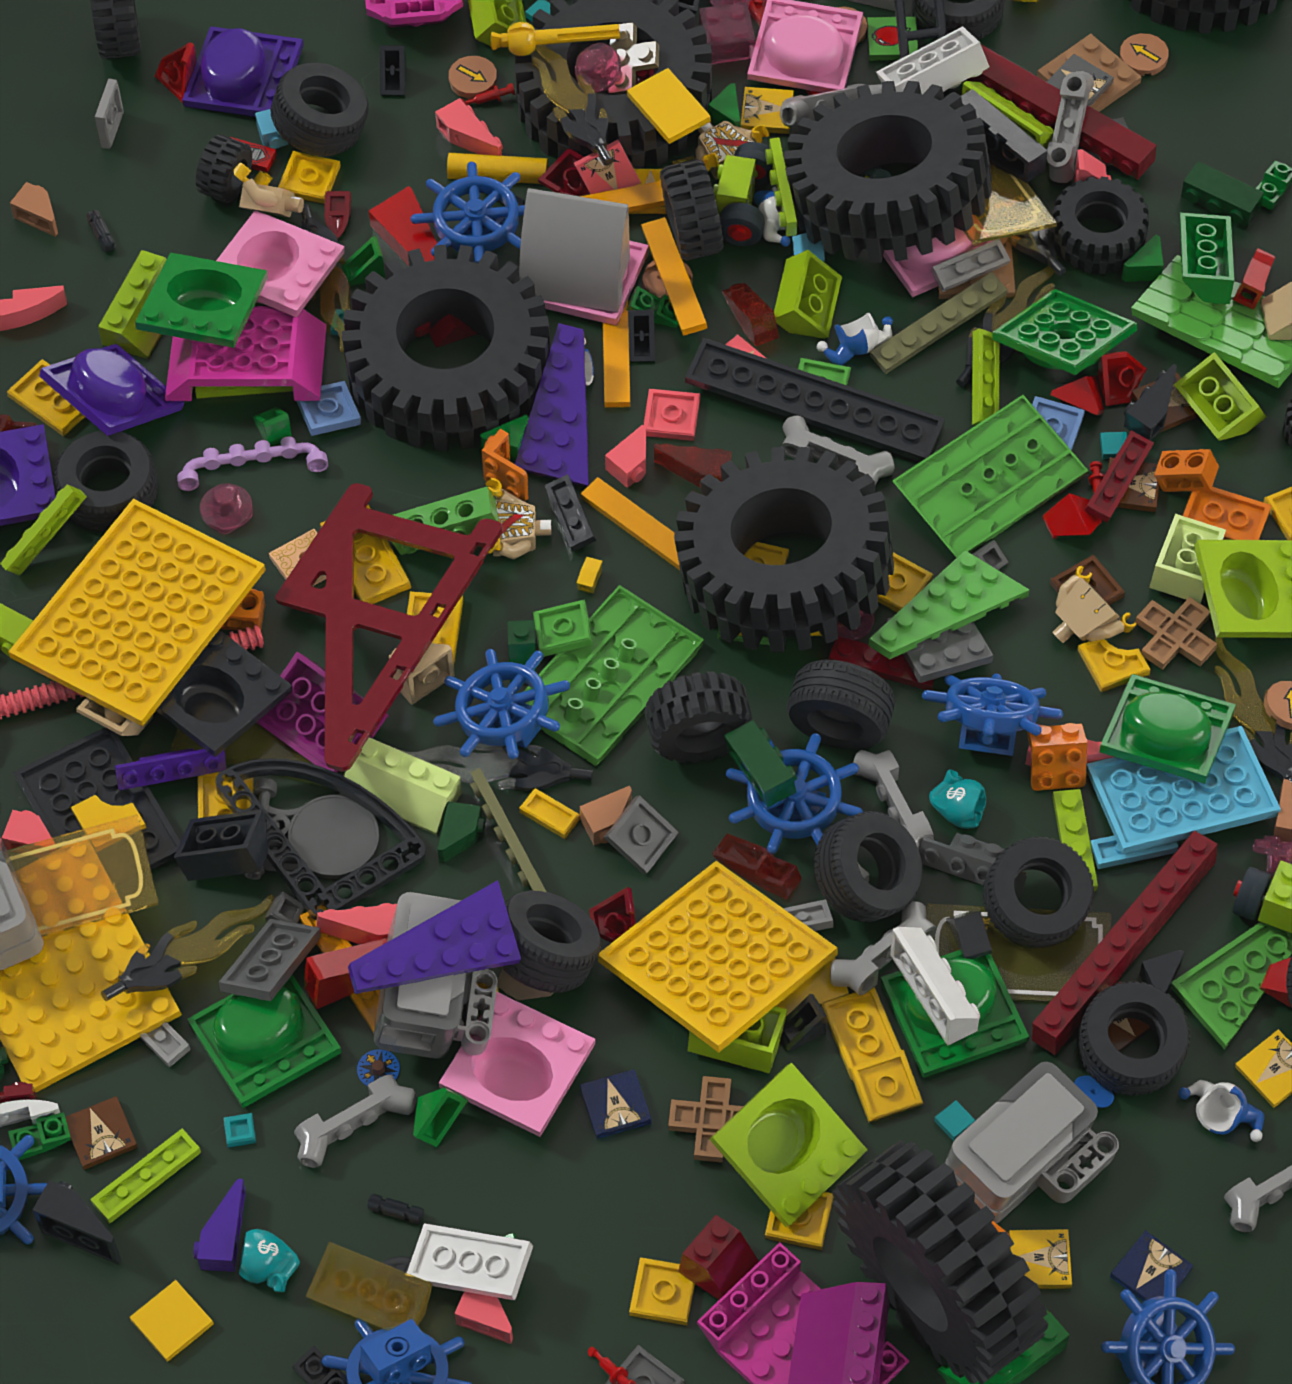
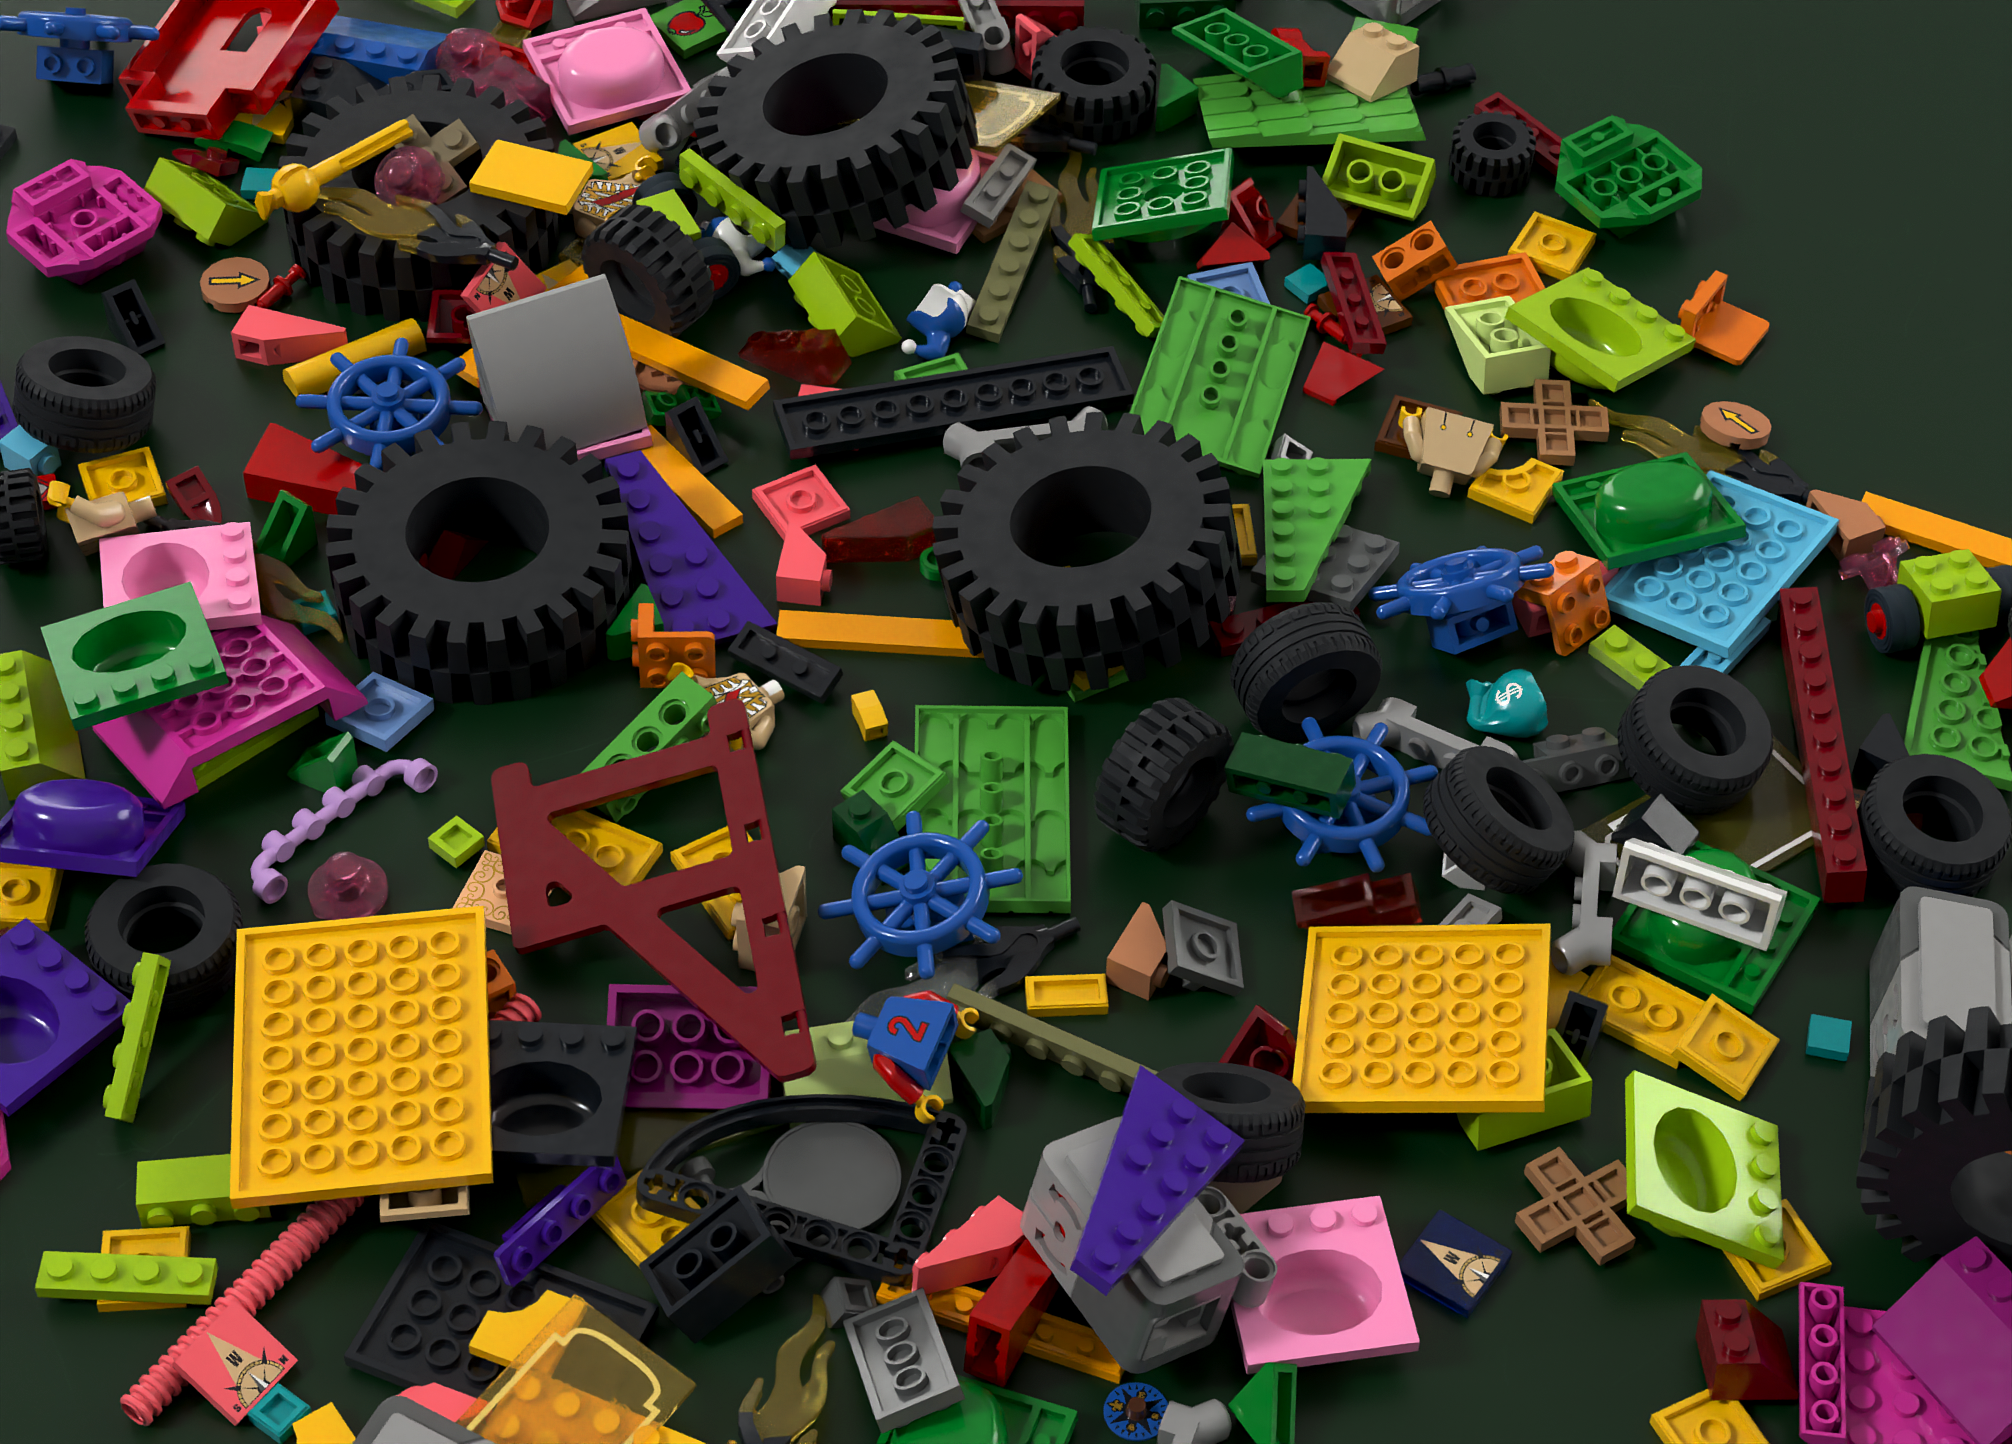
camera: 40 degrees left, 10 degrees down
(303, 514) = (456, 841): none -> lime plate
(420, 786) = (911, 1043): none -> blue torso

